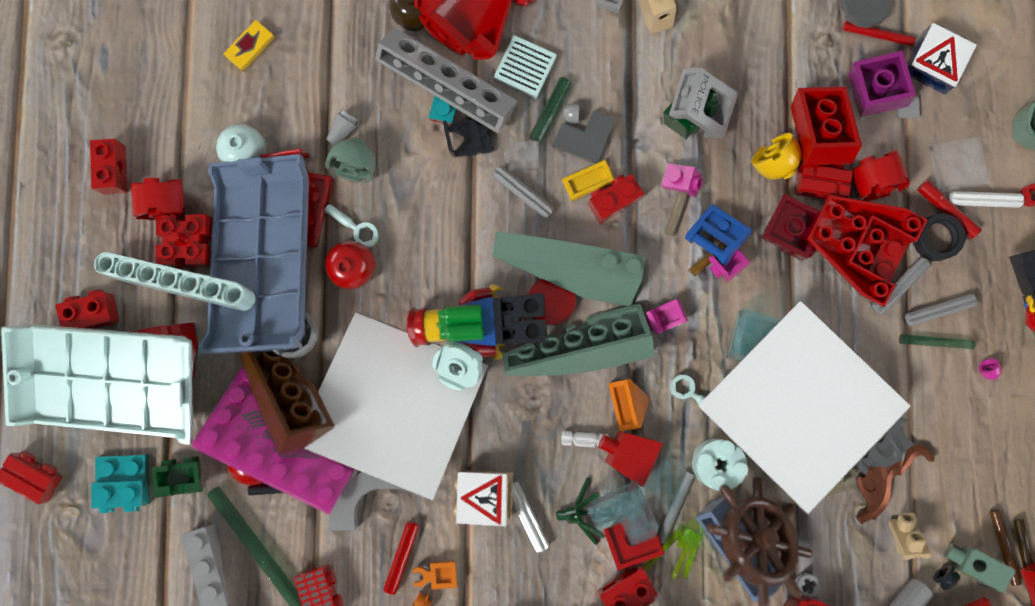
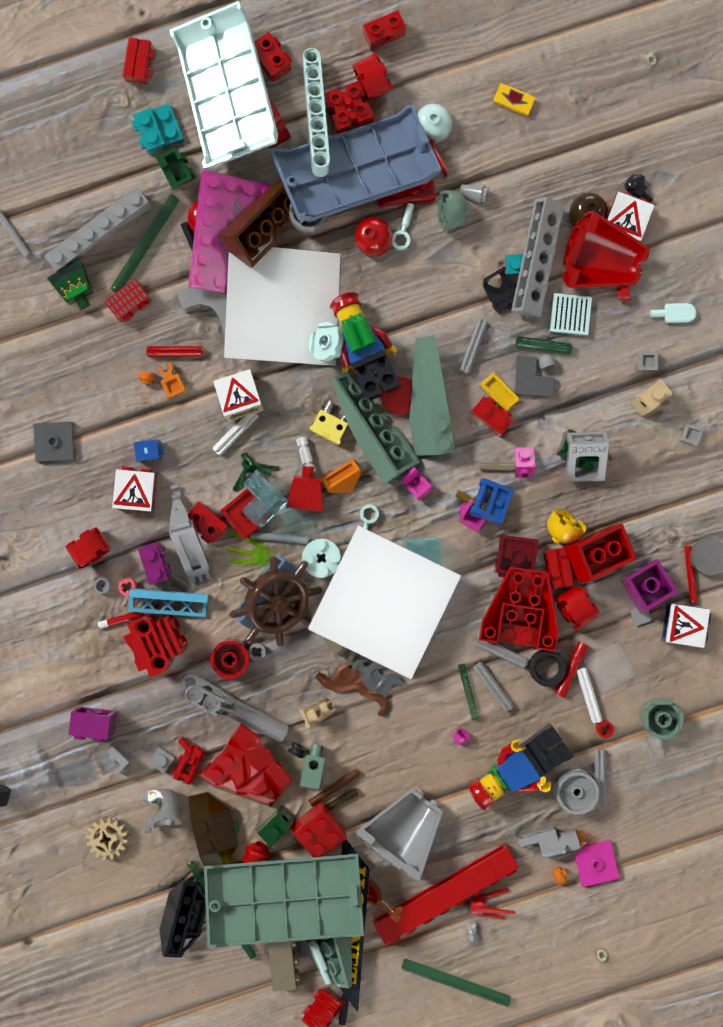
camera: 70 degrees right, 5 degrees up
(562, 400) = (328, 428): none -> light yellow piece

